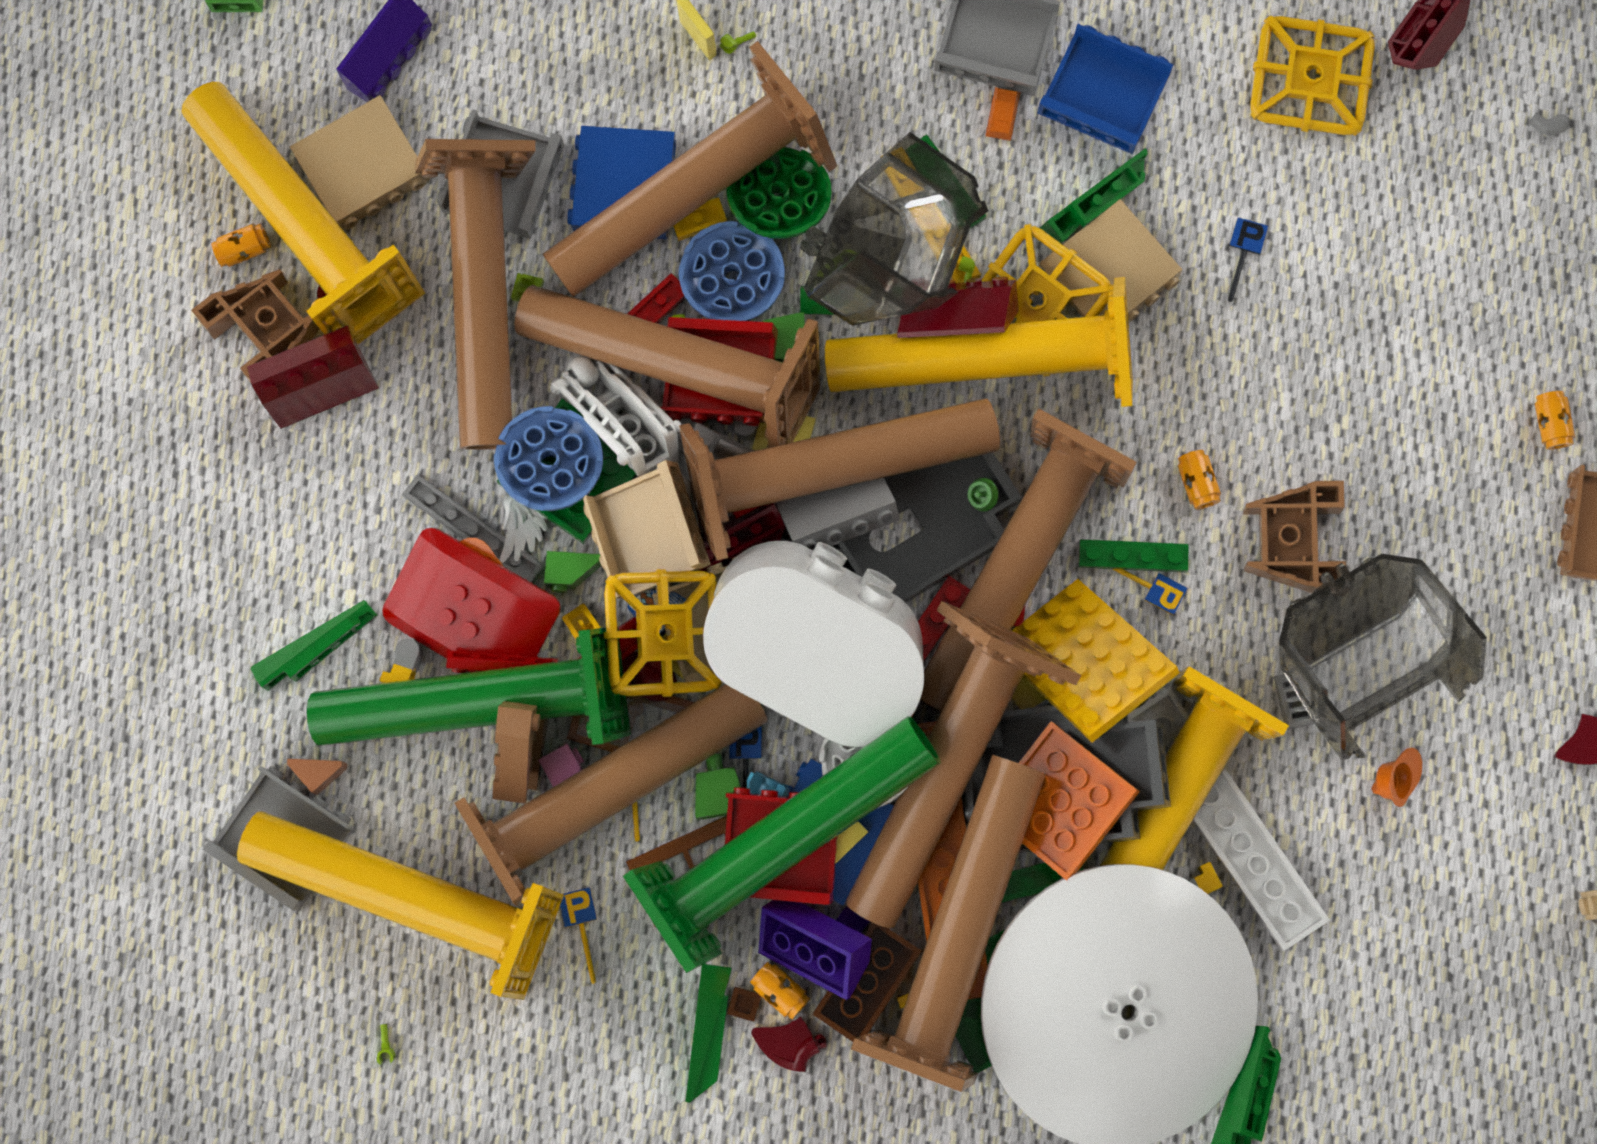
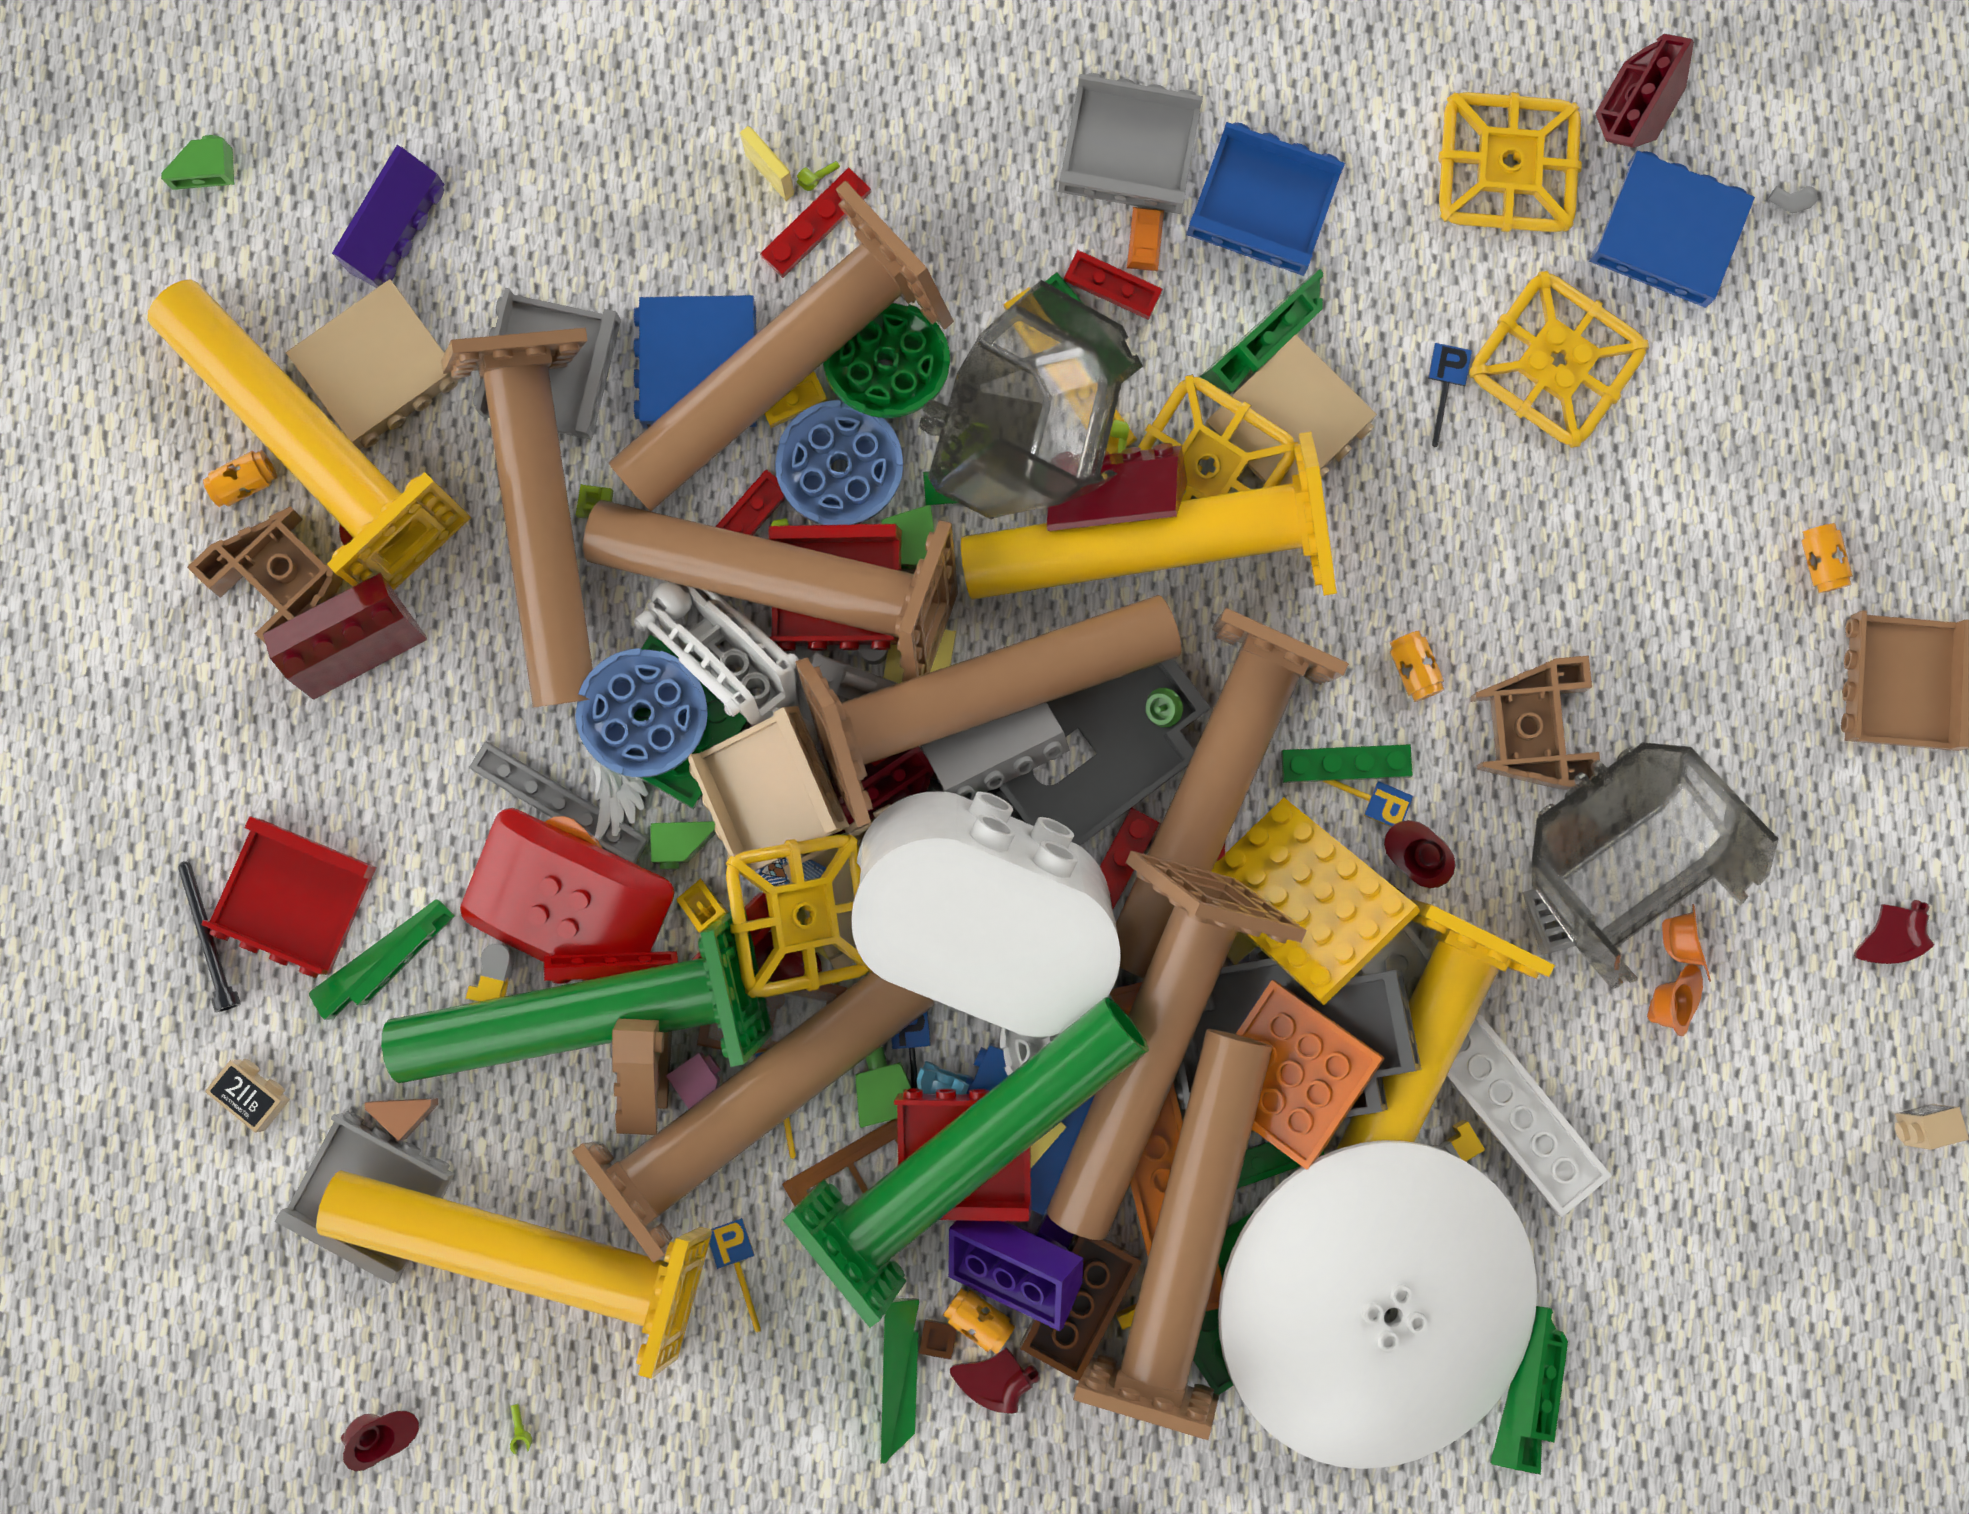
camera: 15 degrees left, 5 degrees up
(180, 663) = (223, 995): none -> black piece
(191, 744) = (248, 1094): none -> brick
(245, 587) = (290, 898): none -> red panel
(268, 1039) = (377, 1438): none -> dark red piece
(726, 83) = (811, 226): none -> red plate
(972, 148) = (1113, 284): none -> red plate
(1188, 633) = (1420, 853): none -> dark red piece
(1340, 221) = (1577, 352): none -> yellow plate
(1406, 726) = (1682, 940): none -> orange piece
(1444, 139) = (1673, 228): none -> blue panel

